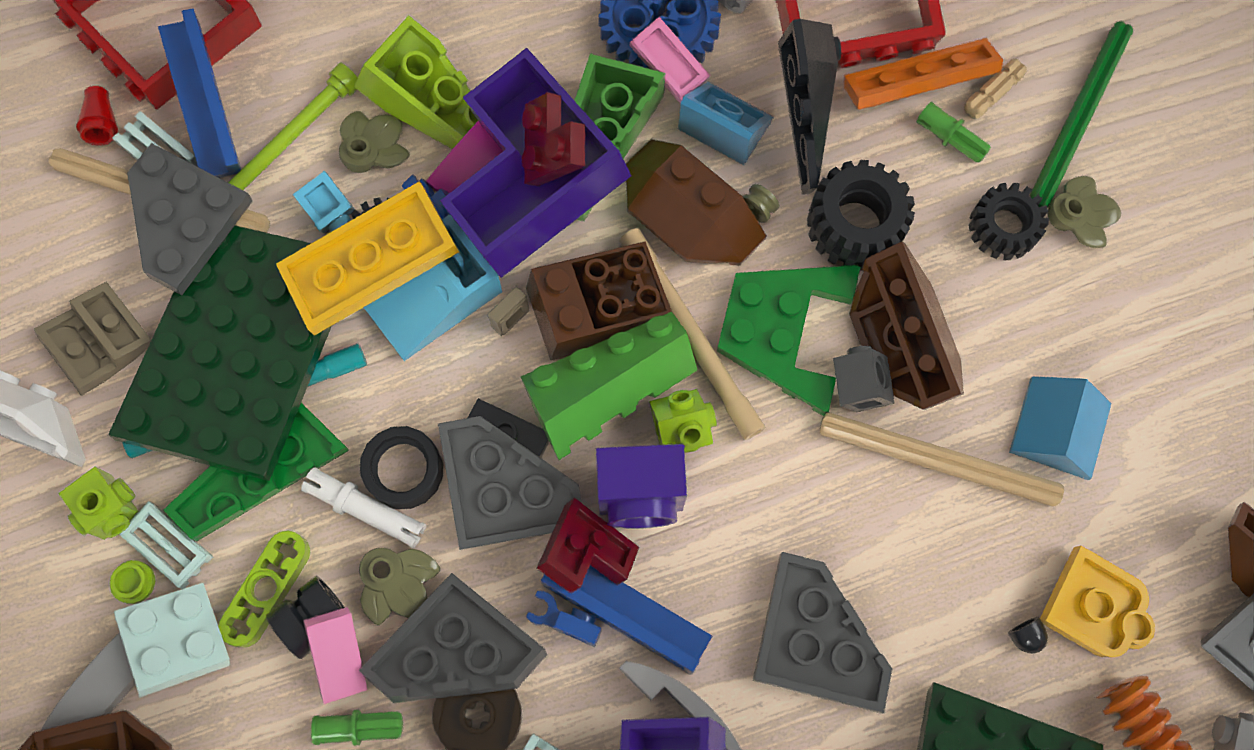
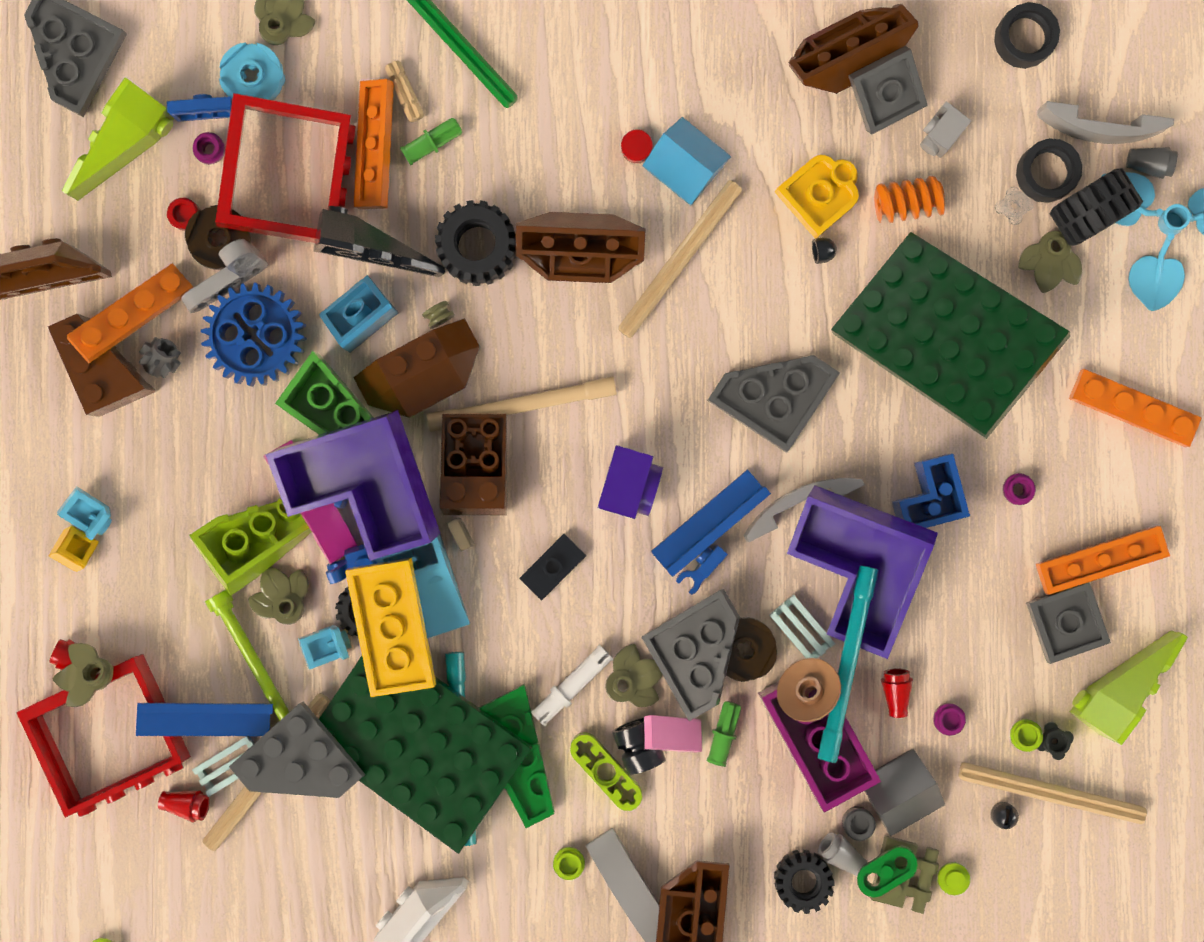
camera: 65 degrees left, 15 degrees up
(93, 338) = (371, 849): dark tan slope -> none
(99, 504) = (497, 875): lime brick -> none
(171, 639) = (621, 844): light aqua plate -> none
(191, 568) = (572, 819): light aqua tile -> none
(379, 445) = (541, 671): black tyre -> none
(499, 485) = (593, 581): dark grey plate -> none
(549, 147) = (358, 468): dark red plate -> none
(582, 541) = (654, 538): dark red plate -> none
(608, 380) = (542, 480): bright green wedge -> none
(667, 54) = (297, 341): bright pink tile -> none
(683, 420) = (590, 435): lime brick -> none
(768, 321) = (533, 343): green wing -> none
(863, 379) = (604, 292): dark grey brick -> none
(1018, 203) = (514, 112): black tyre -> none
(1051, 360) = (636, 146): none -> red tile
(1084, 211) = (529, 64): olive plate -> none

